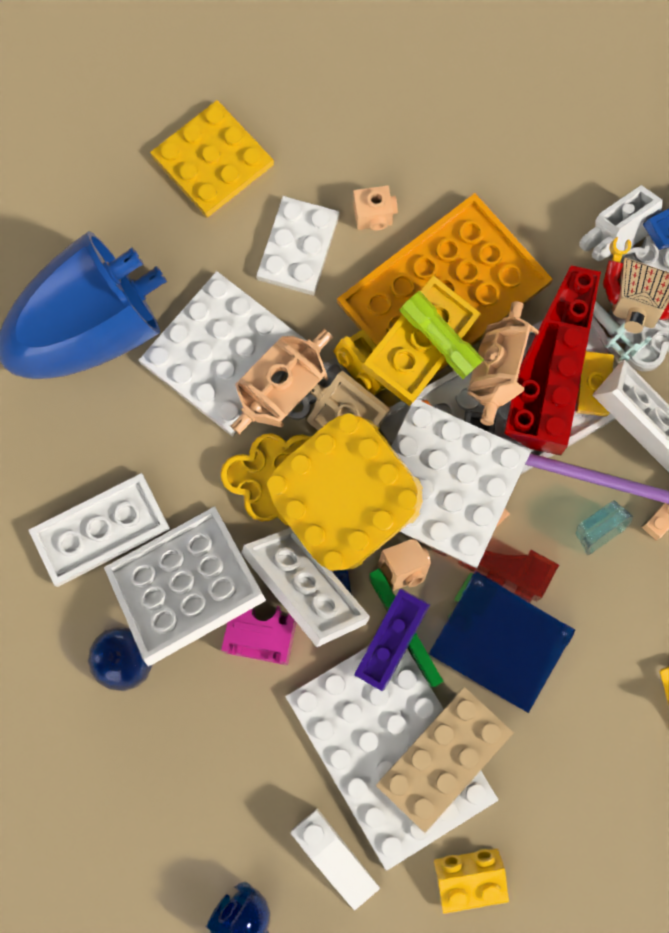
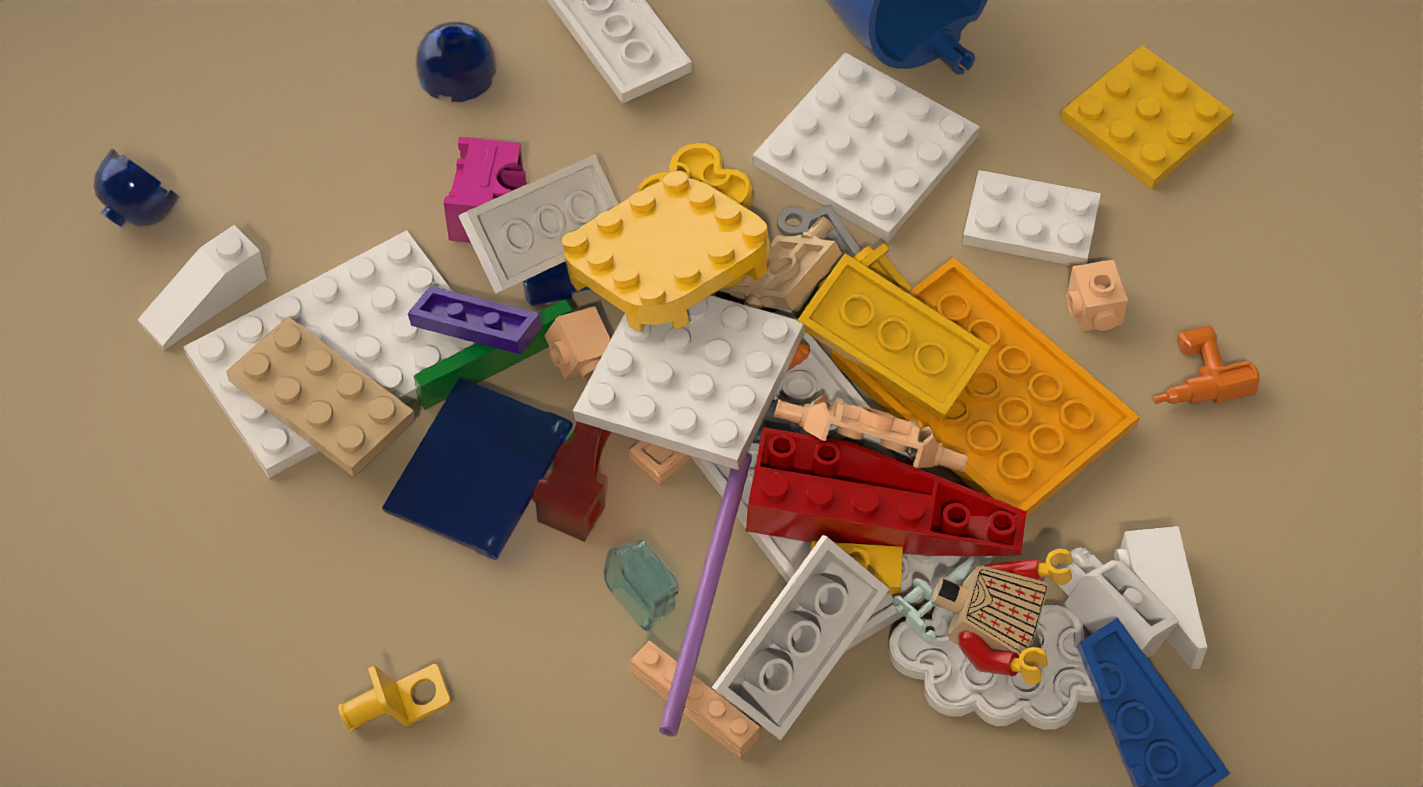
camera: 85 degrees right, 20 degrees down
(183, 585) = (544, 99): white plate -> none
(270, 401) = (846, 208): light nougat plate -> none
(424, 316) = (877, 365): lime axle -> none
(441, 141) = (1216, 380): none -> orange piece
(471, 880) = (164, 440): yellow bracket -> none
(591, 195) = (1162, 566): none -> white slope

